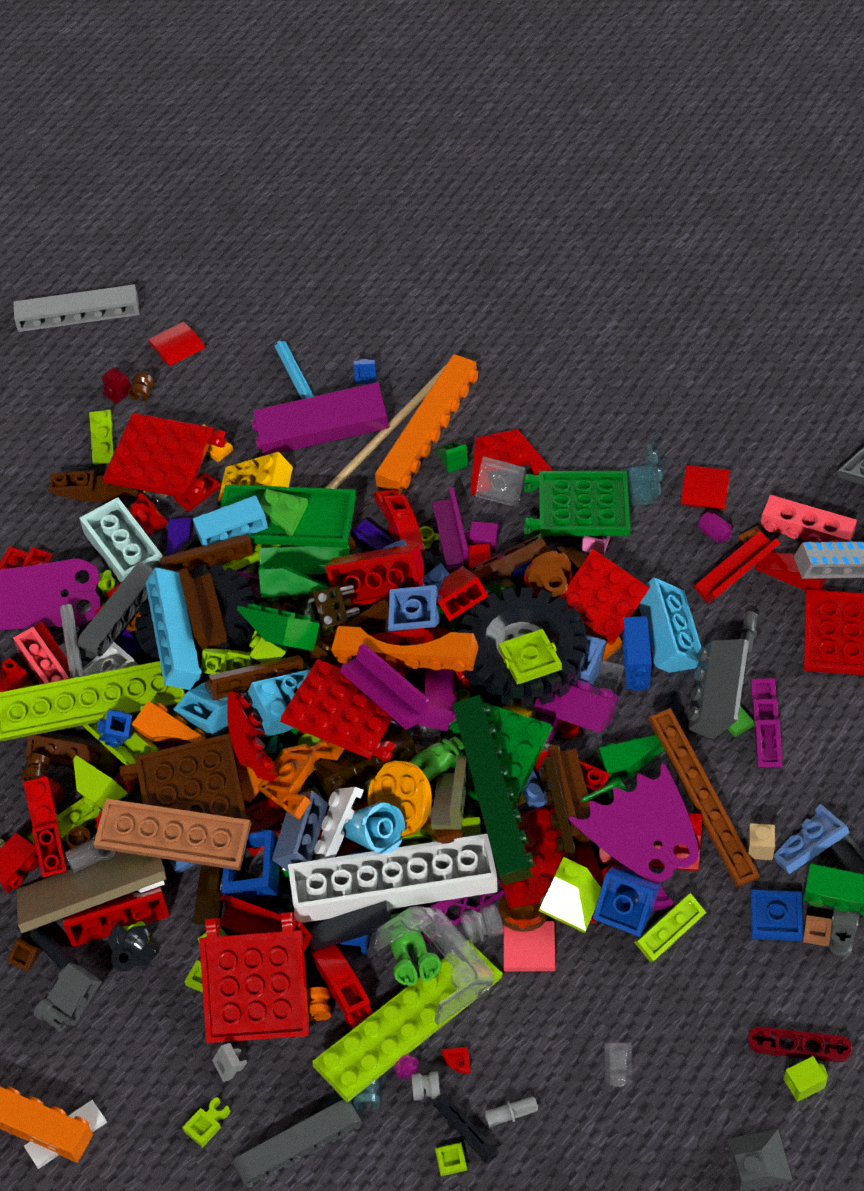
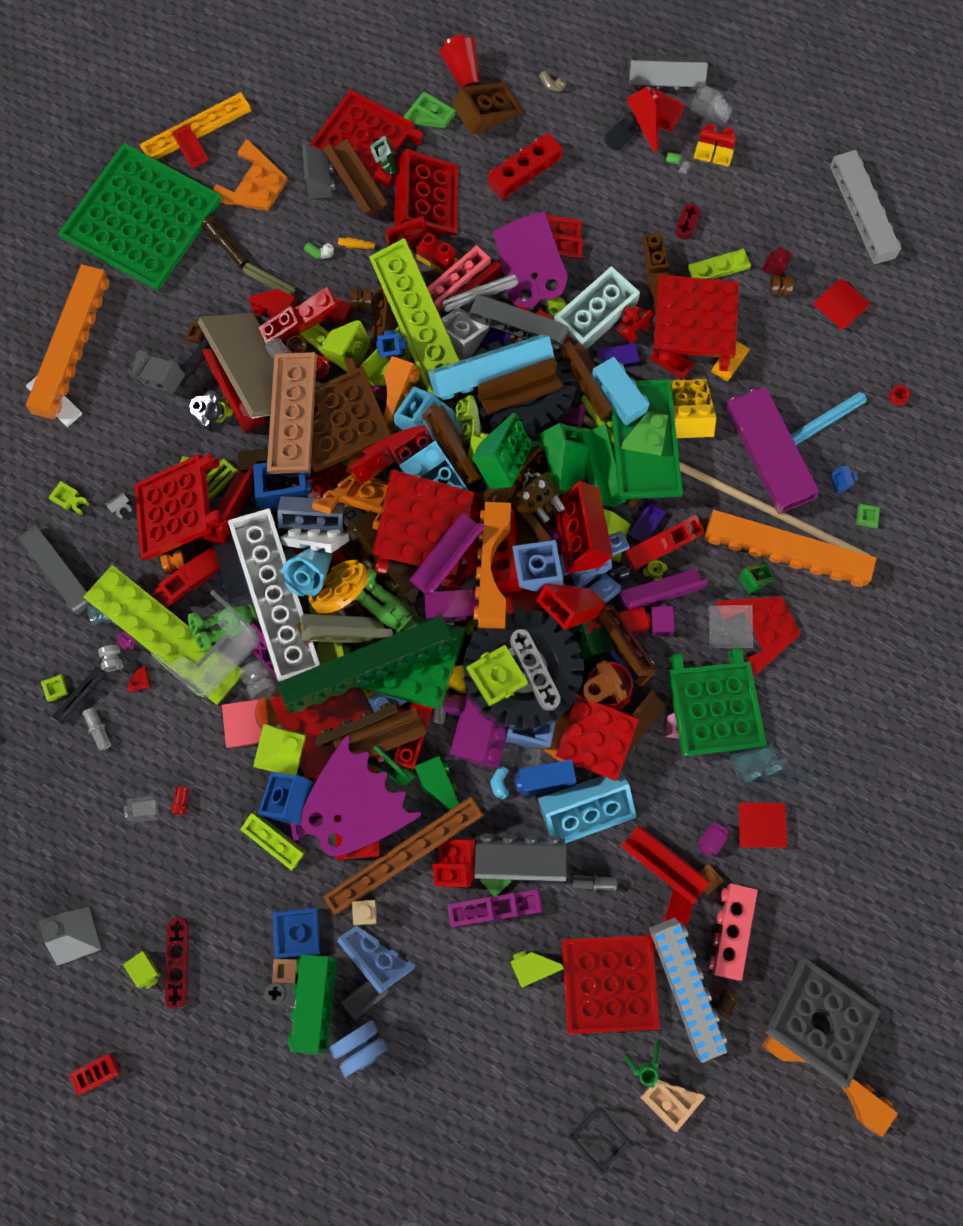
camera: 75 degrees right, 20 degrees up
(43, 452) = (690, 222): none -> dark red beam
(287, 315) = (899, 395): none -> red tile
(405, 360) = (868, 515): none -> bright green tile
(526, 622) = (538, 668): none -> light grey beam
(612, 1023) = (180, 800): none -> red pin
(633, 705) = (498, 784): none -> medium azure arm
(718, 747) = (455, 863): none -> red slope
(831, 696) = (533, 967): none -> lime slope

